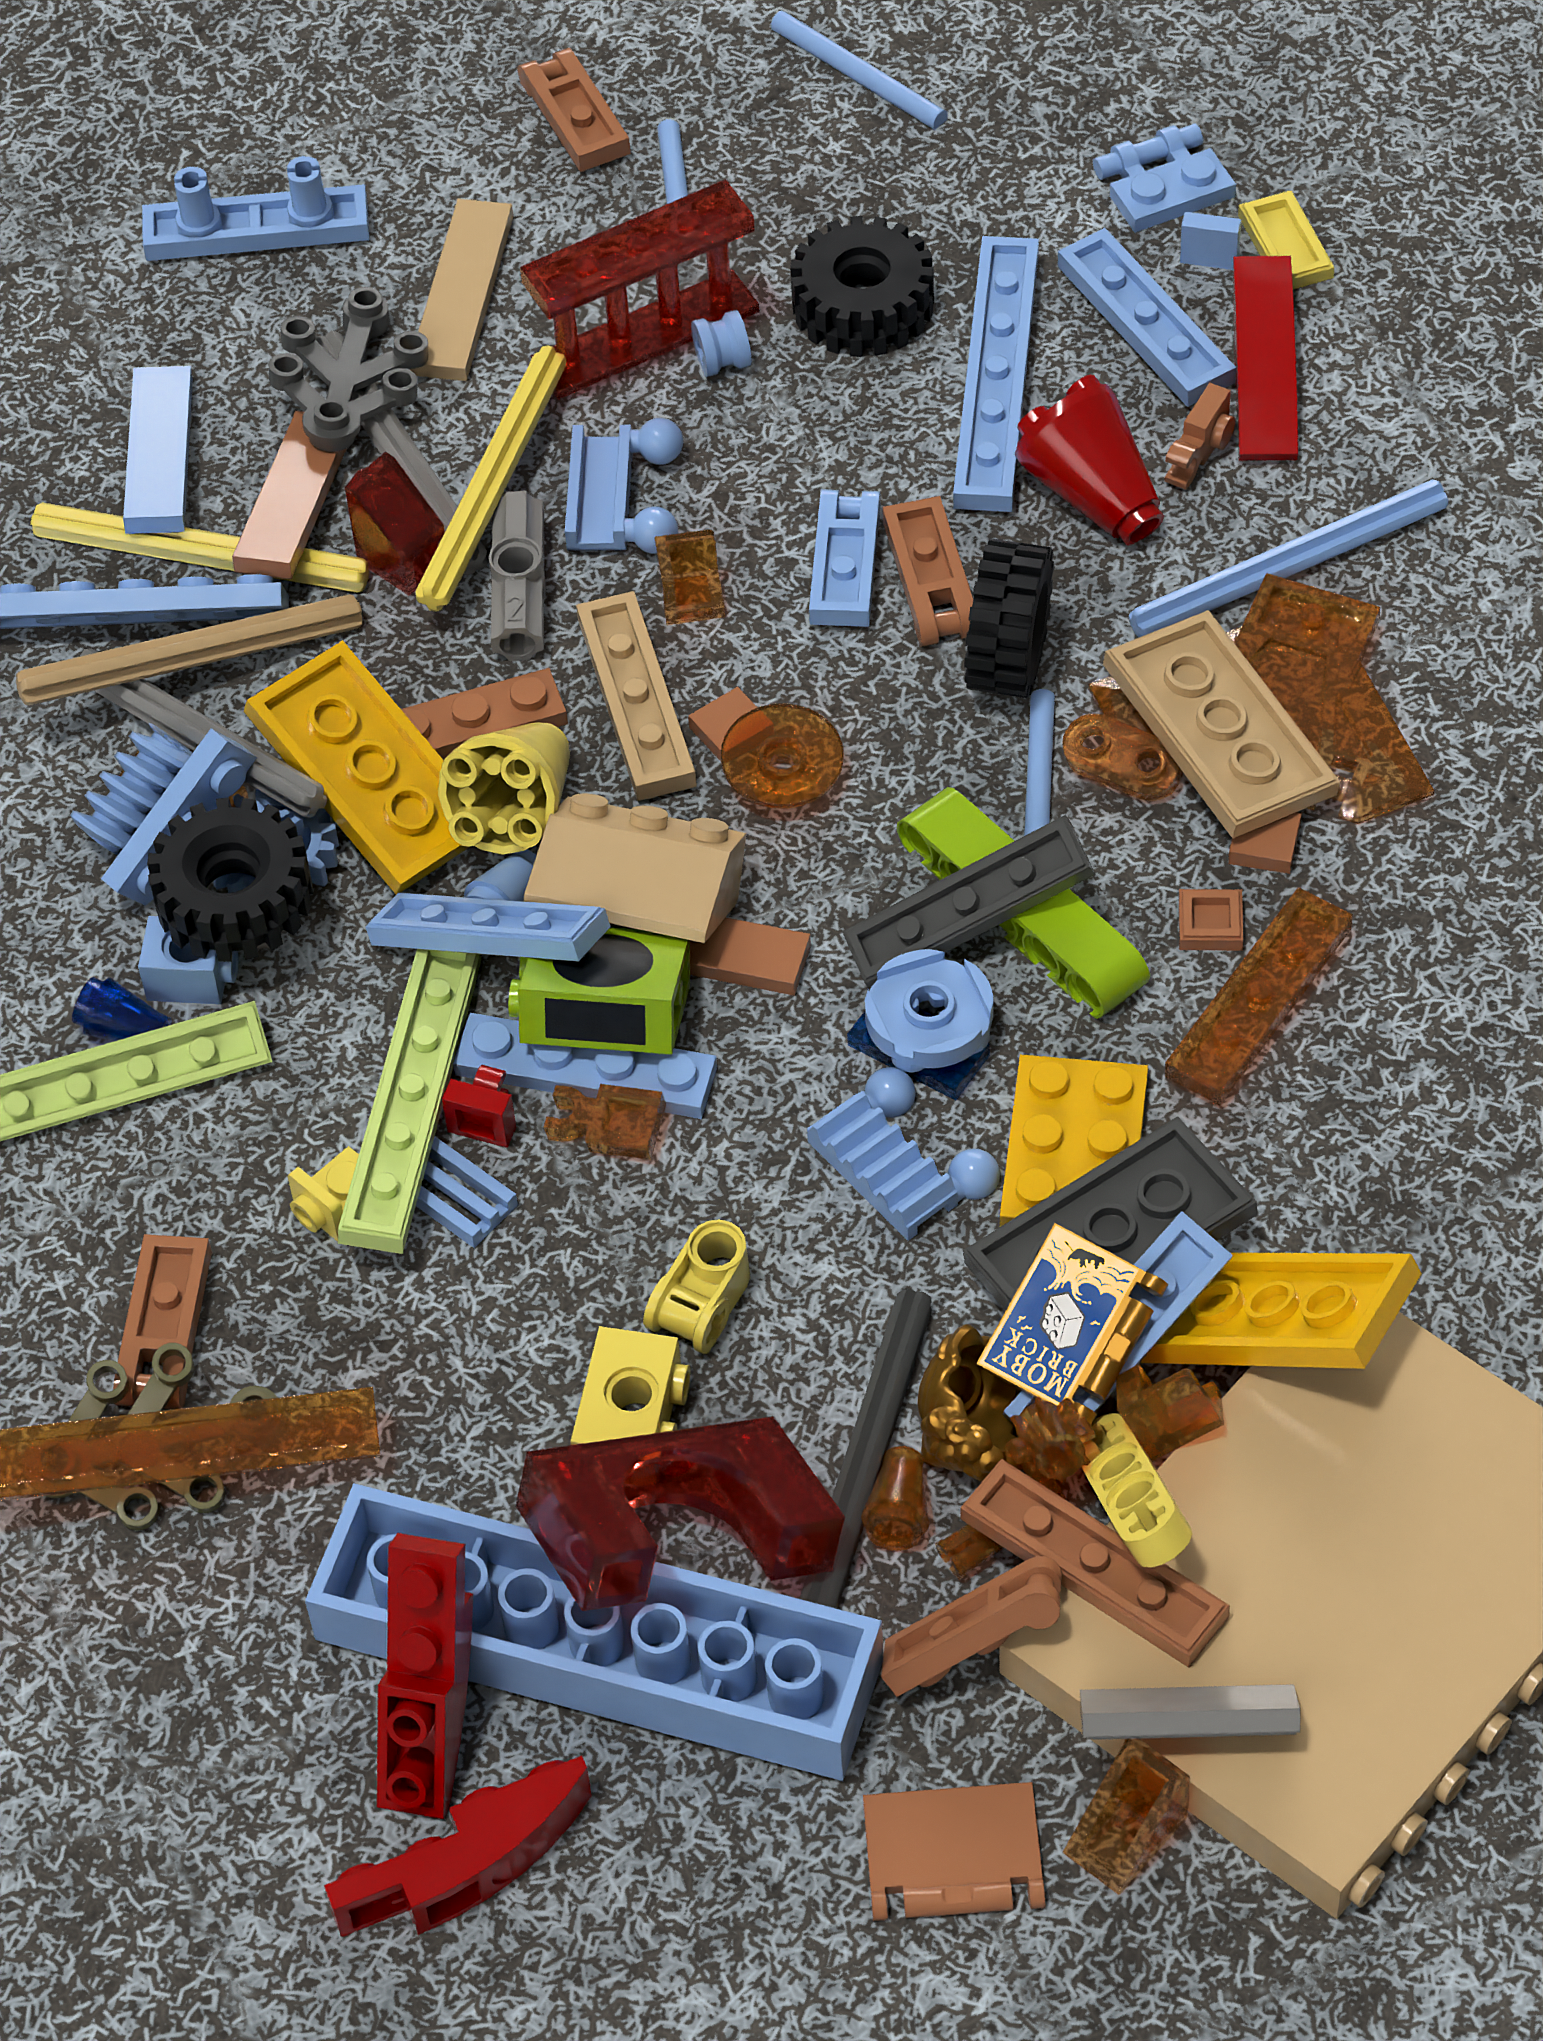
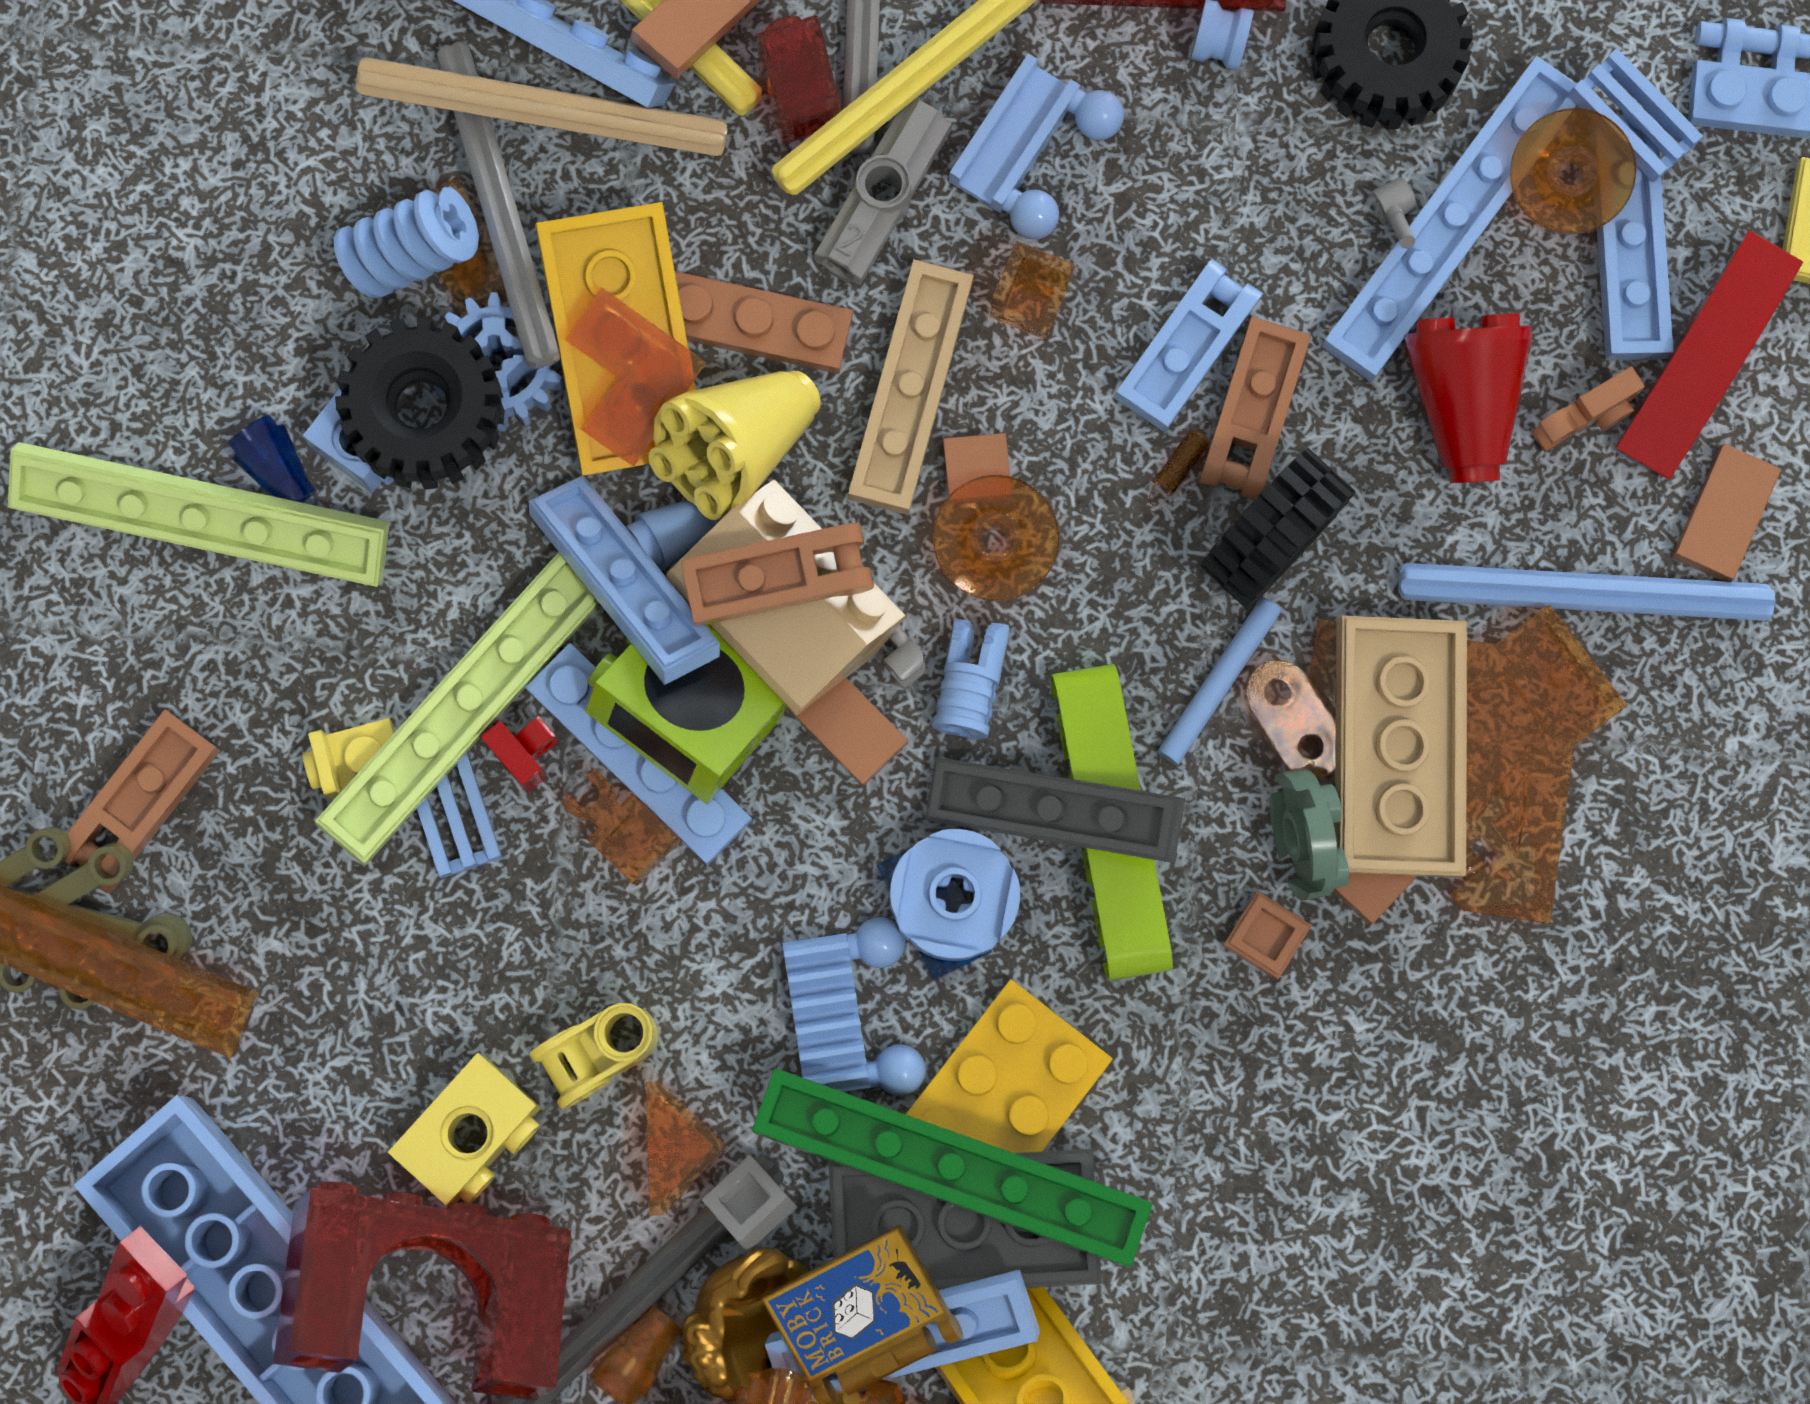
camera: 20 degrees right, 25 degrees up
(210, 773) = (458, 283): light blue plate -> none
(400, 766) = (647, 370): none -> clear orange plate
(618, 832) = (774, 574): none -> nougat plate
(766, 883) = (907, 661): none -> light grey hand
(821, 1316) = (677, 1149): none -> clear orange slope
(834, 870) = (970, 688): none -> light blue hinge
(897, 636) = (1181, 461): none -> clear orange piece
(916, 1314) = (749, 1203): none -> light grey tile
(947, 385) = (1396, 202): none -> light grey hand
(1069, 1179) = (952, 1168): none -> green plate
(1070, 266) = (1596, 148): none -> clear orange dish
(1090, 225) = (1651, 100): none -> light blue tile
(1189, 811) = (1305, 830): none -> sand green plate
(1209, 240) = (1745, 187): light blue tile -> none
(1258, 996) = (1255, 1046): clear orange plate -> none
(1359, 455) = (1726, 513): none -> nougat tile

